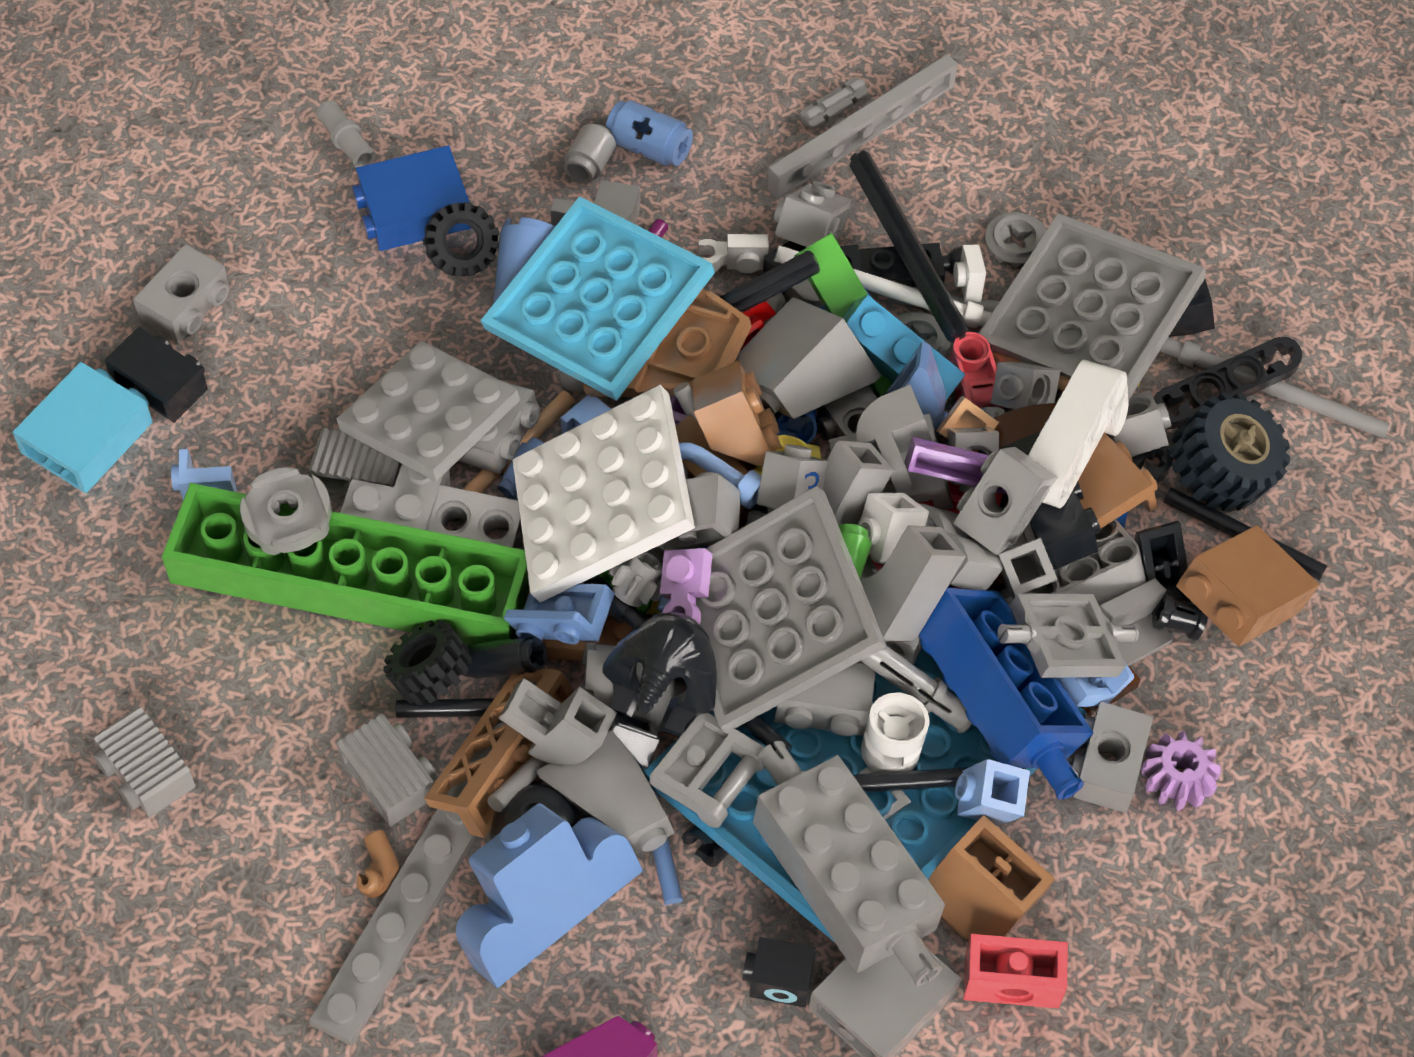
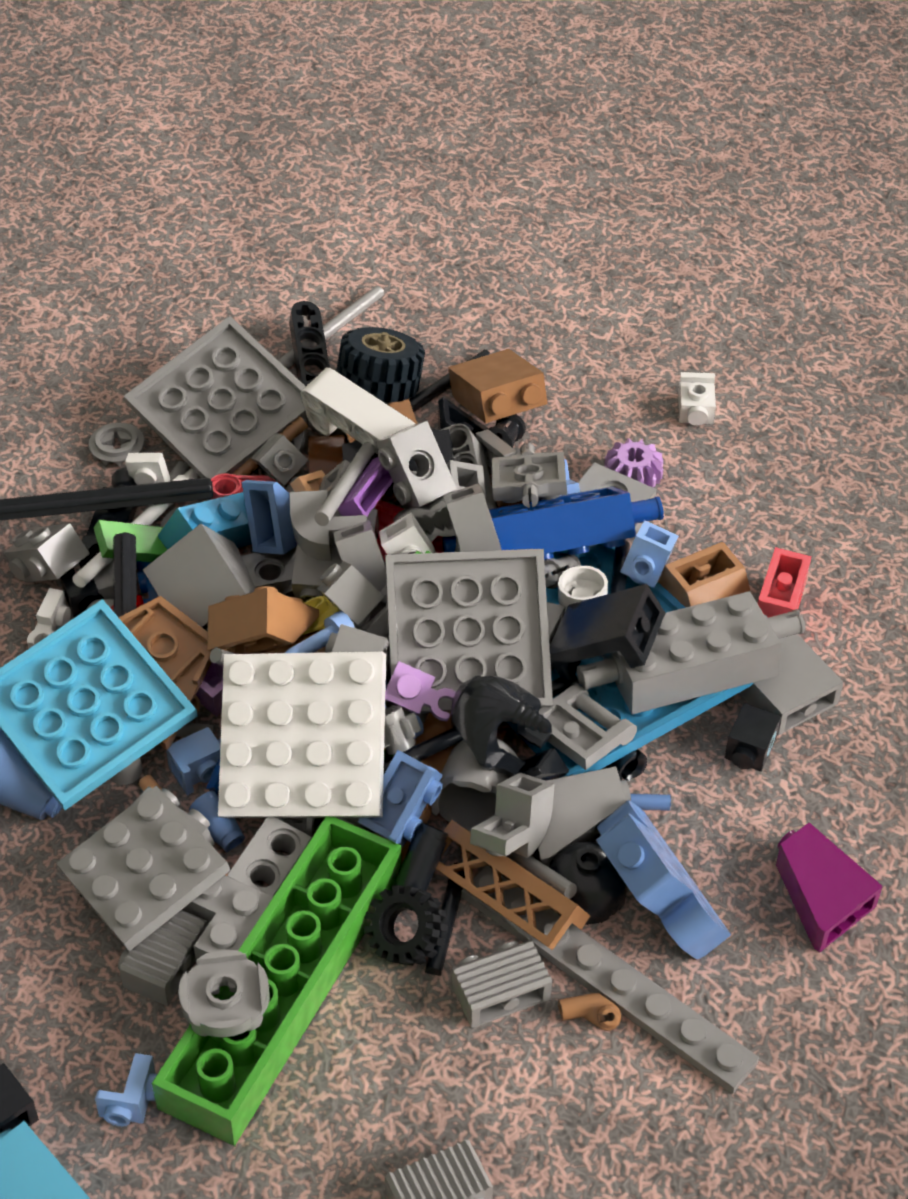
camera: 75 degrees left, 10 degrees down
(820, 754) = (607, 624): none -> black panel
(940, 434) = (344, 484): none -> light grey bar
(1325, 839) = (696, 398): none -> white brick

